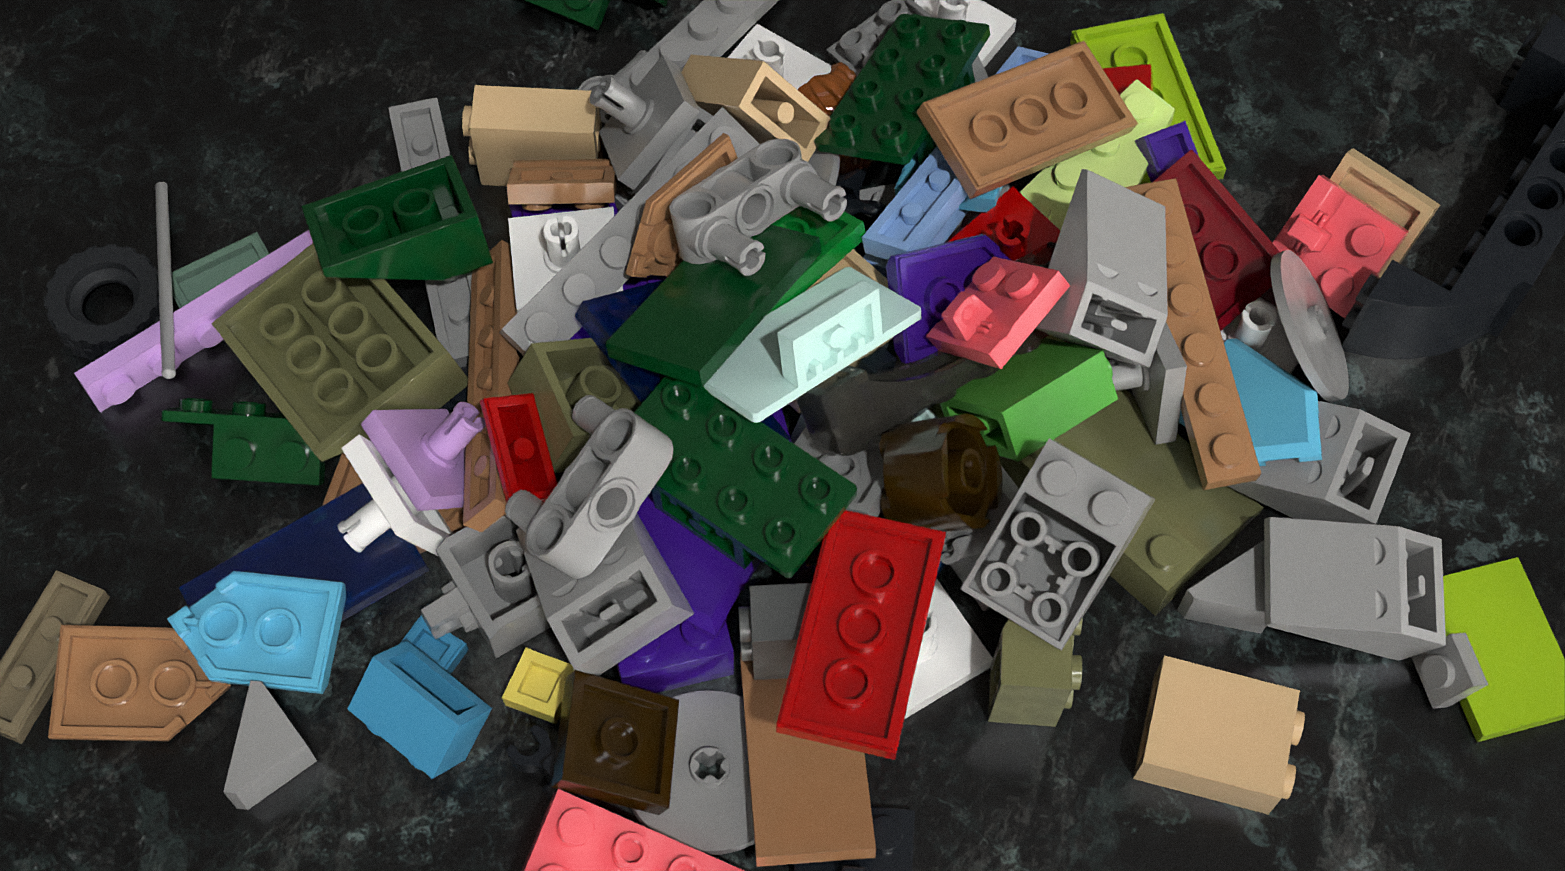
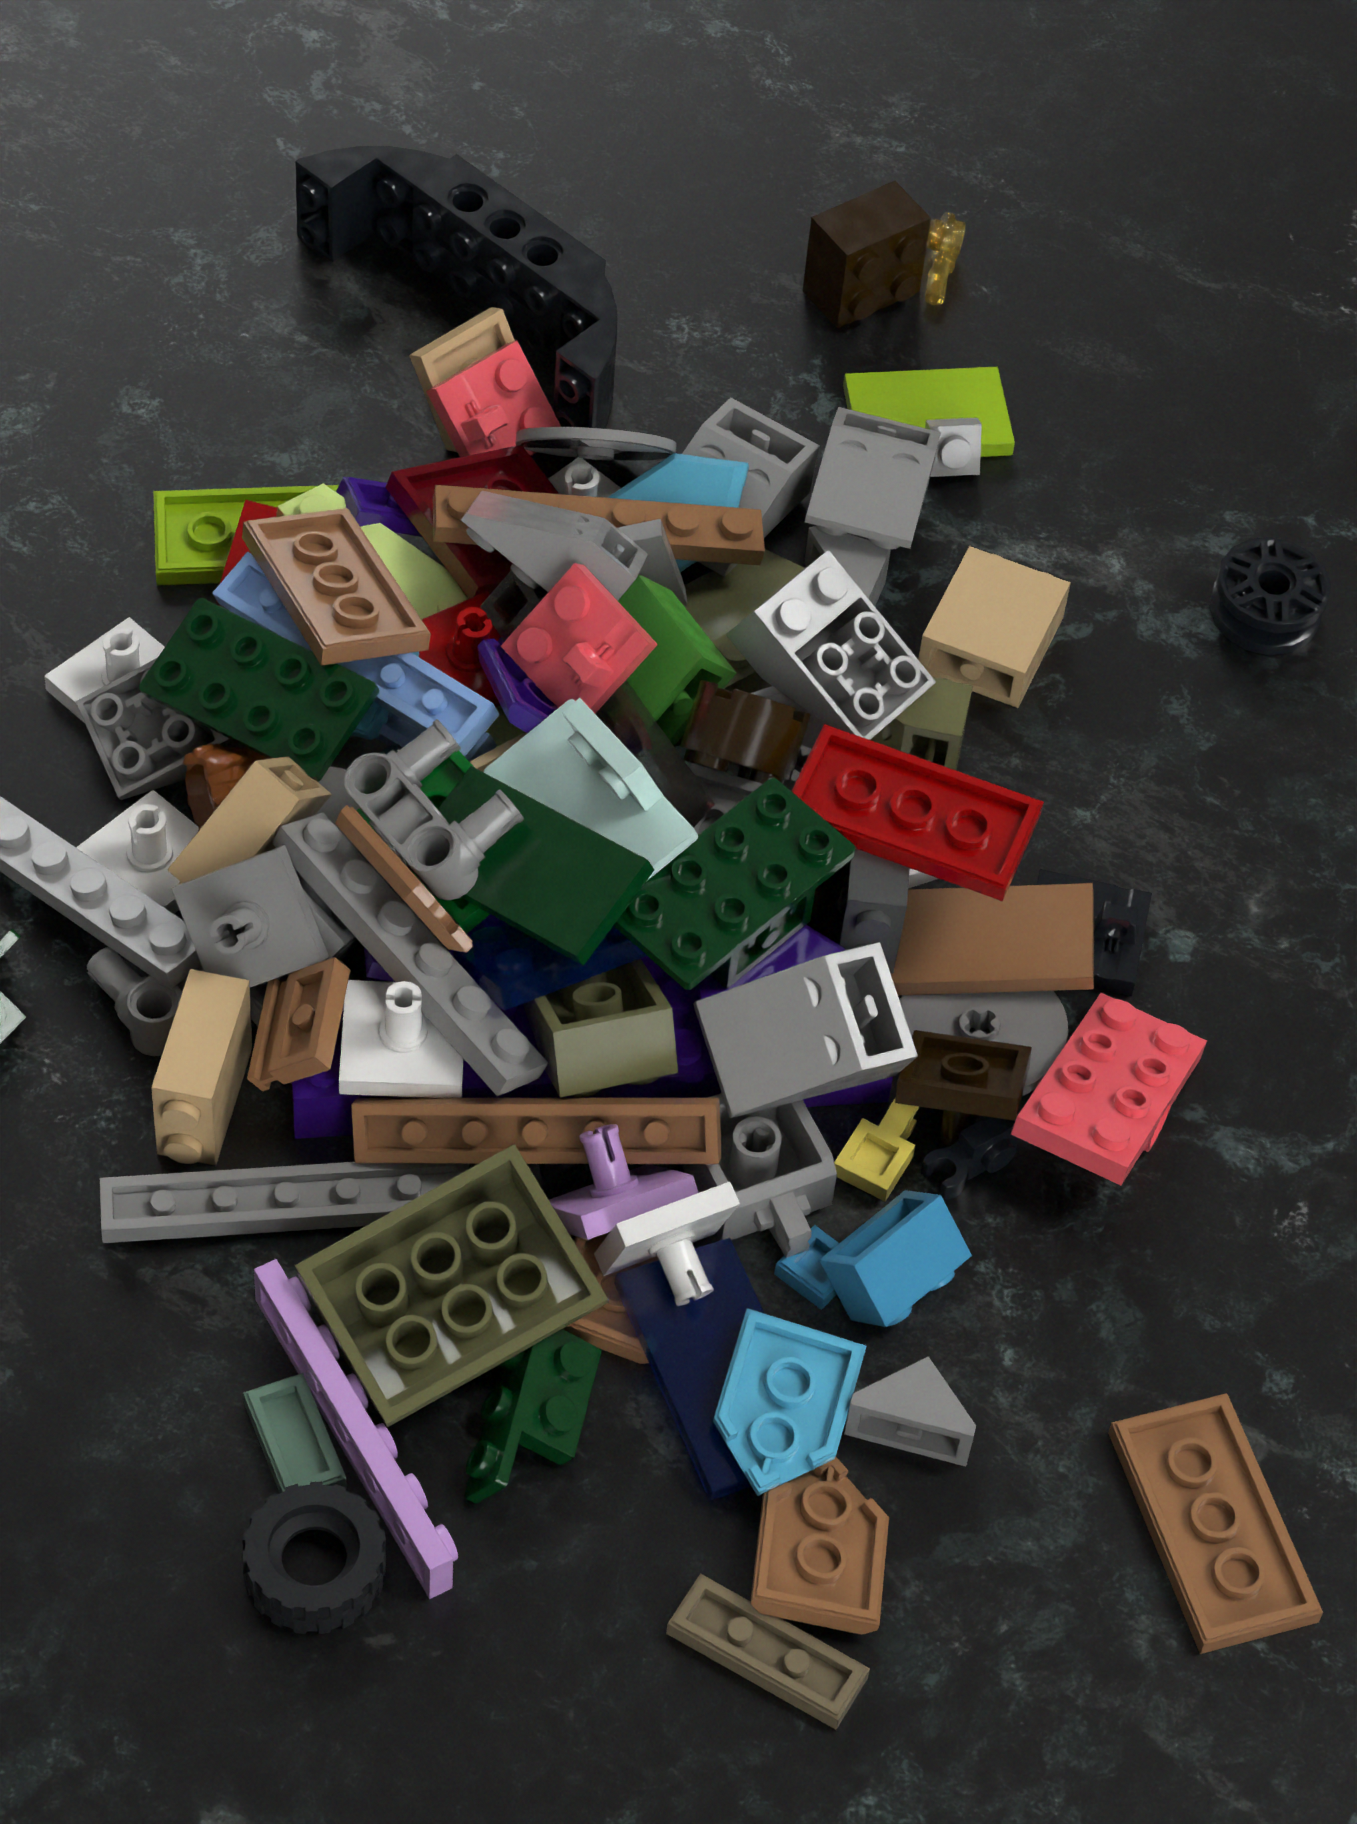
camera: 85 degrees left, 10 degrees down
(165, 281) = (307, 1473): light grey axle -> none
(400, 227) = (322, 1185): dark green slope -> none
(519, 445) = (656, 1077): red slope -> none
(596, 490) = (758, 981): light grey piece -> none

